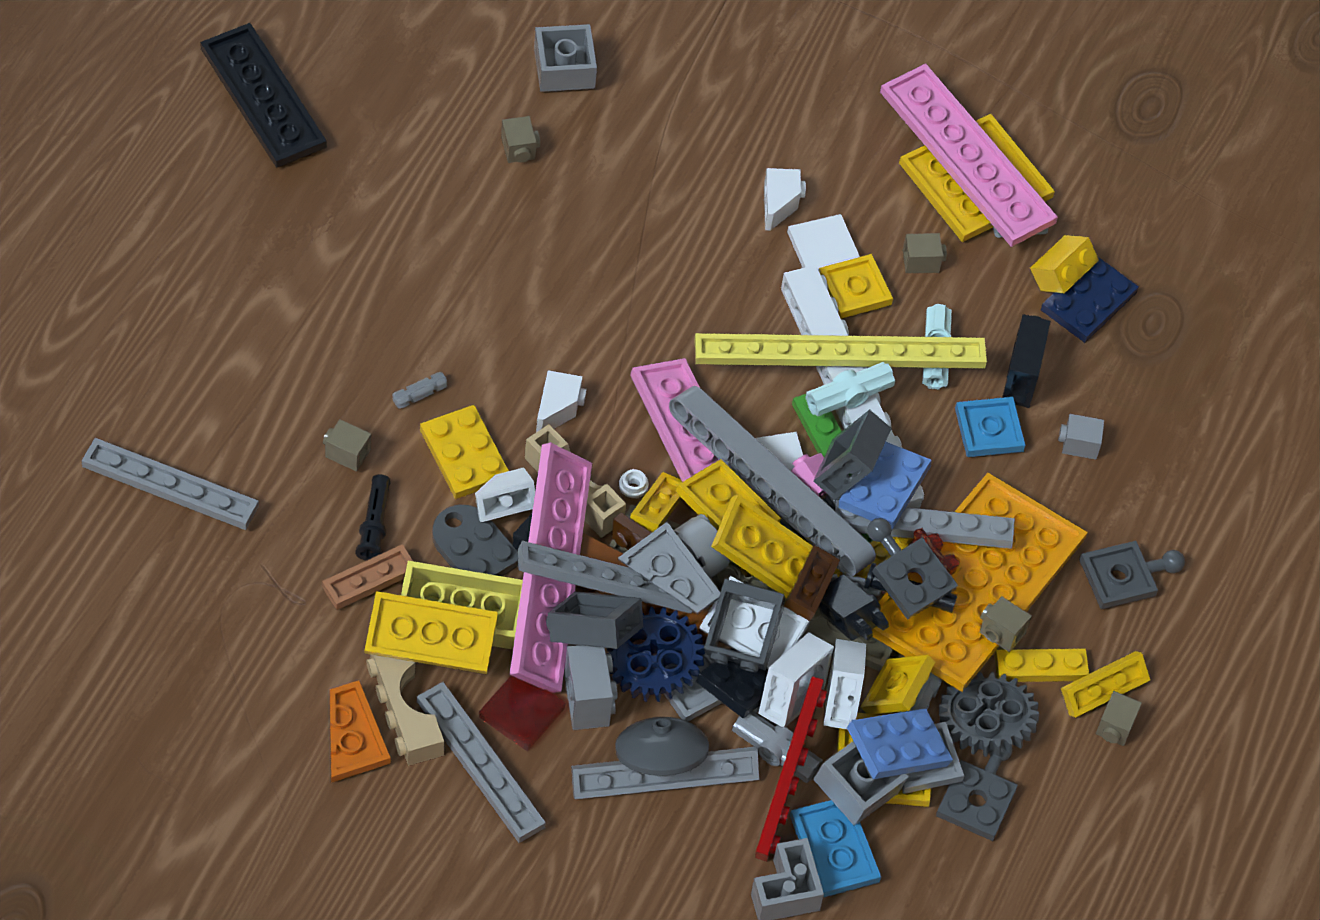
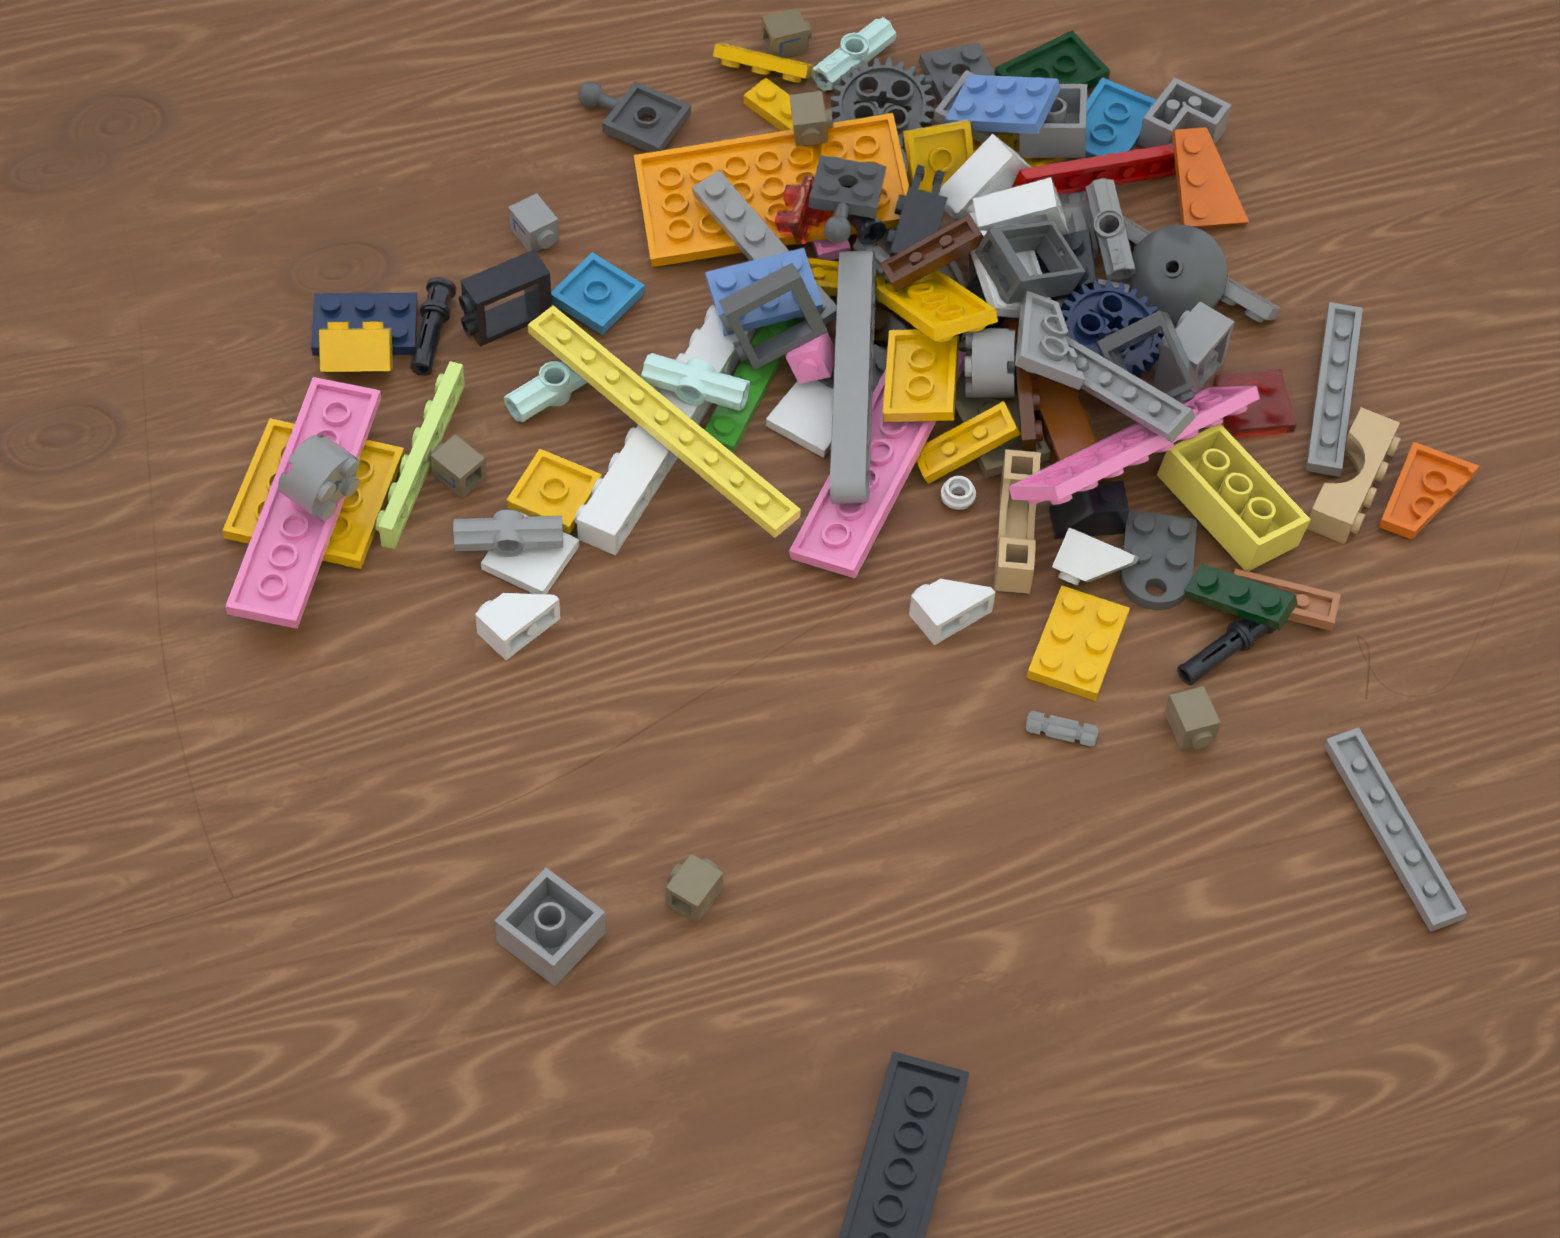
camera: 130 degrees left, 0 degrees up
(392, 539) = (1241, 596): none -> dark green plate
(431, 632) = (1297, 475): yellow plate -> none
(720, 837) = (1203, 183): none -> orange wing
(734, 728) = (1106, 213): none -> light grey piece
(842, 230) = (508, 533): none -> light grey piece
(919, 856) = (1061, 58): none -> dark green plate
(958, 251) = (417, 464): none -> yellowish green plate
(962, 143) = (320, 476): none -> light grey brick
(1057, 729) = (852, 51): none -> light aqua piece
(1059, 332) = (435, 313): none -> black pin

